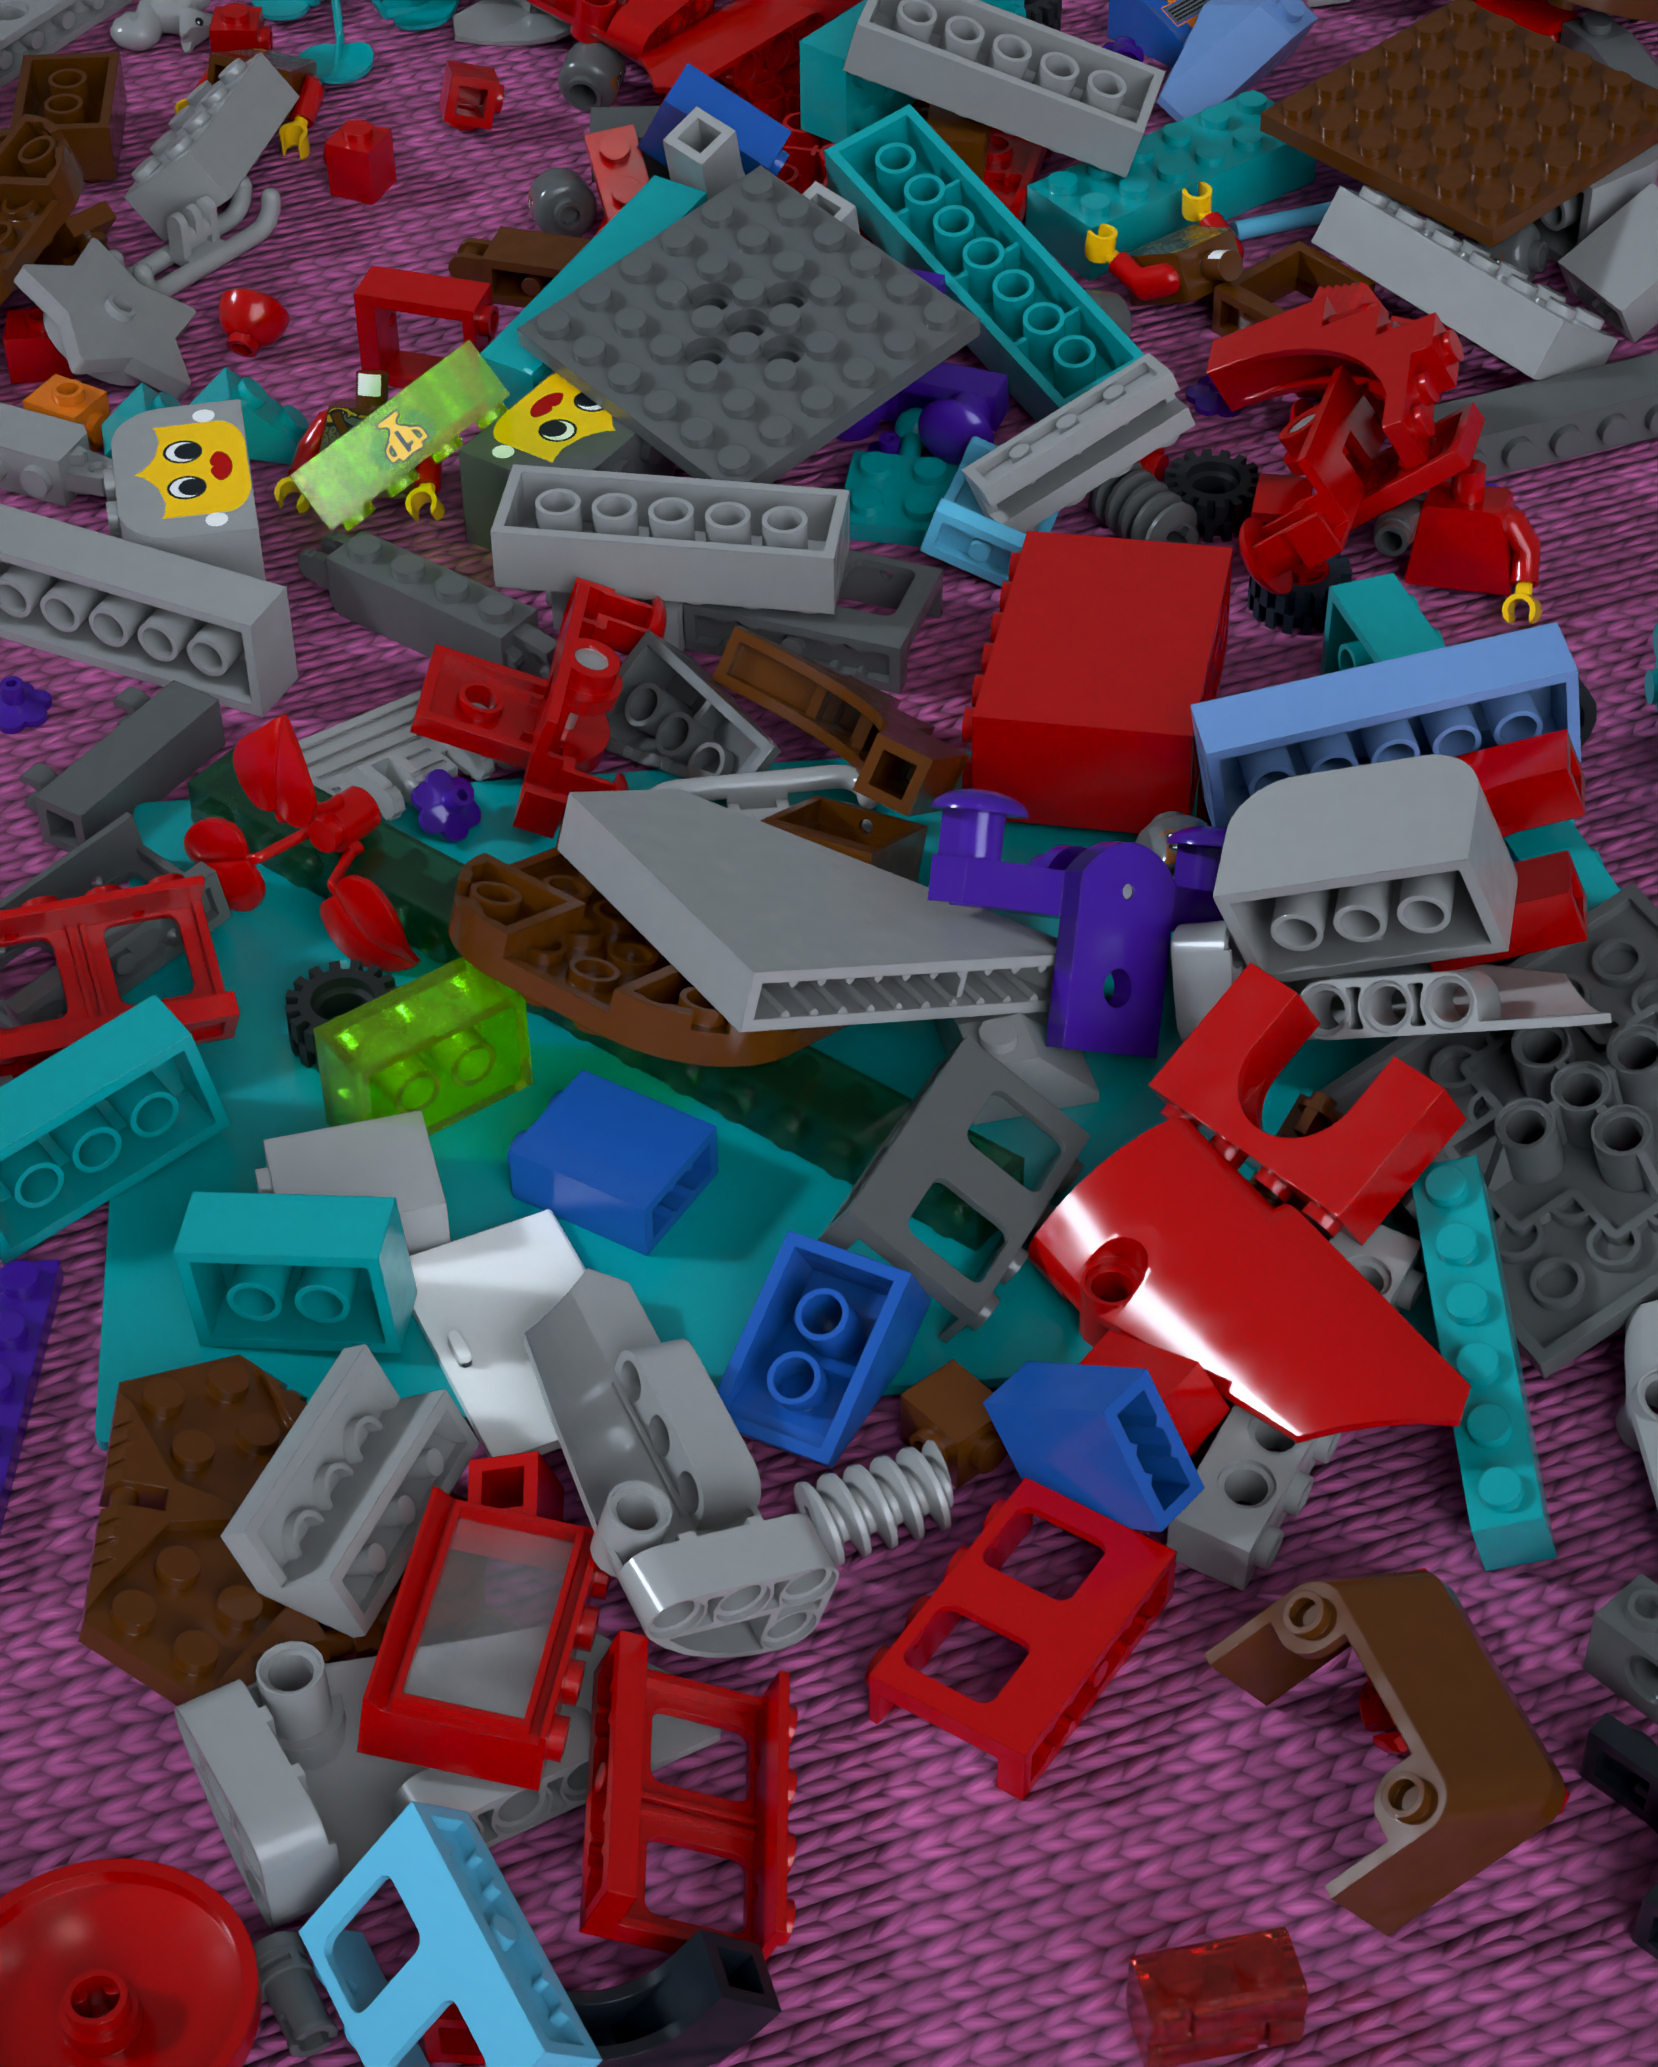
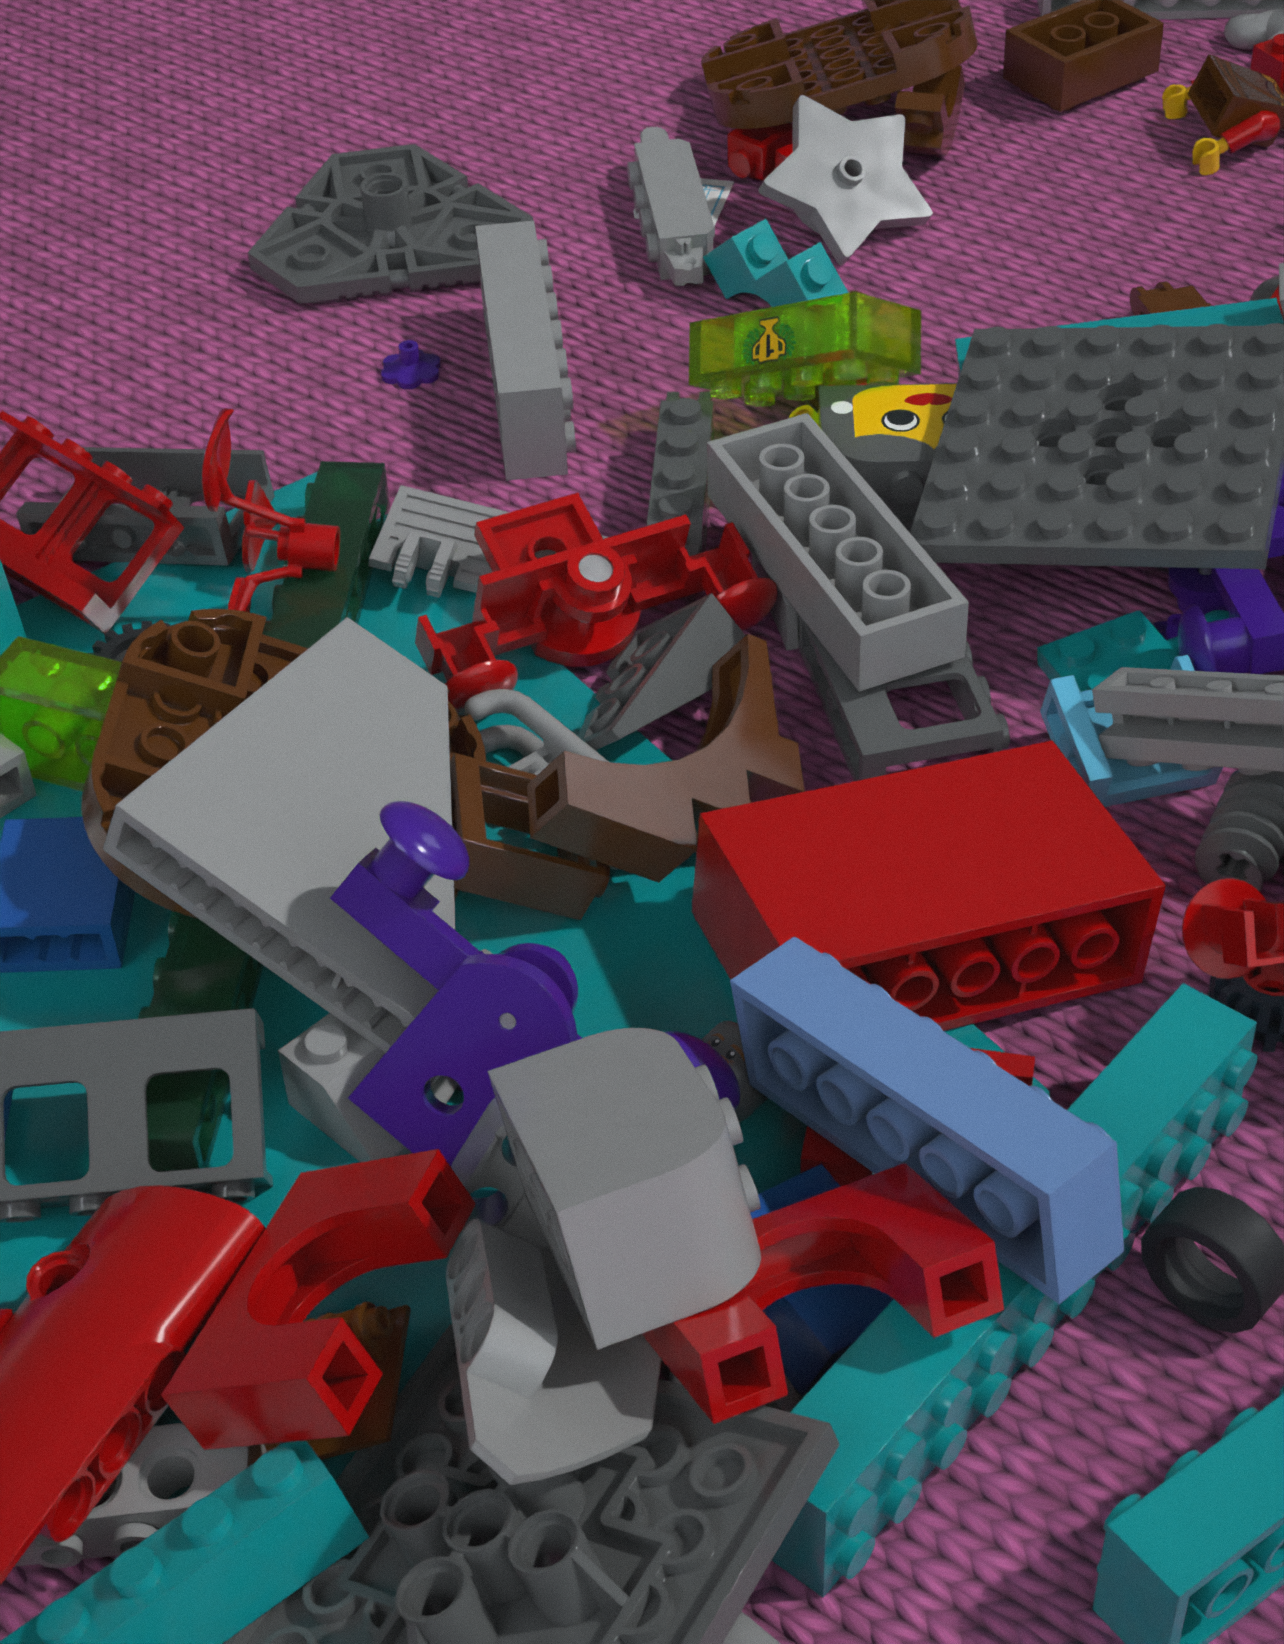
camera: 60 degrees right, 0 degrees up
(72, 402) = (736, 212): orange brick -> none
(134, 764) = (410, 439): dark grey brick -> none
(186, 485) = (633, 314): brick -> none
(197, 242) = (1014, 178): light grey piece -> none
(212, 141) = (1115, 114): light grey brick -> none
(251, 320) = (944, 243): red brick -> none
(360, 161) = (1207, 191): red brick -> none
(393, 290) = (1002, 290): red window -> none
(446, 806) = (449, 601): dark purple plant -> none

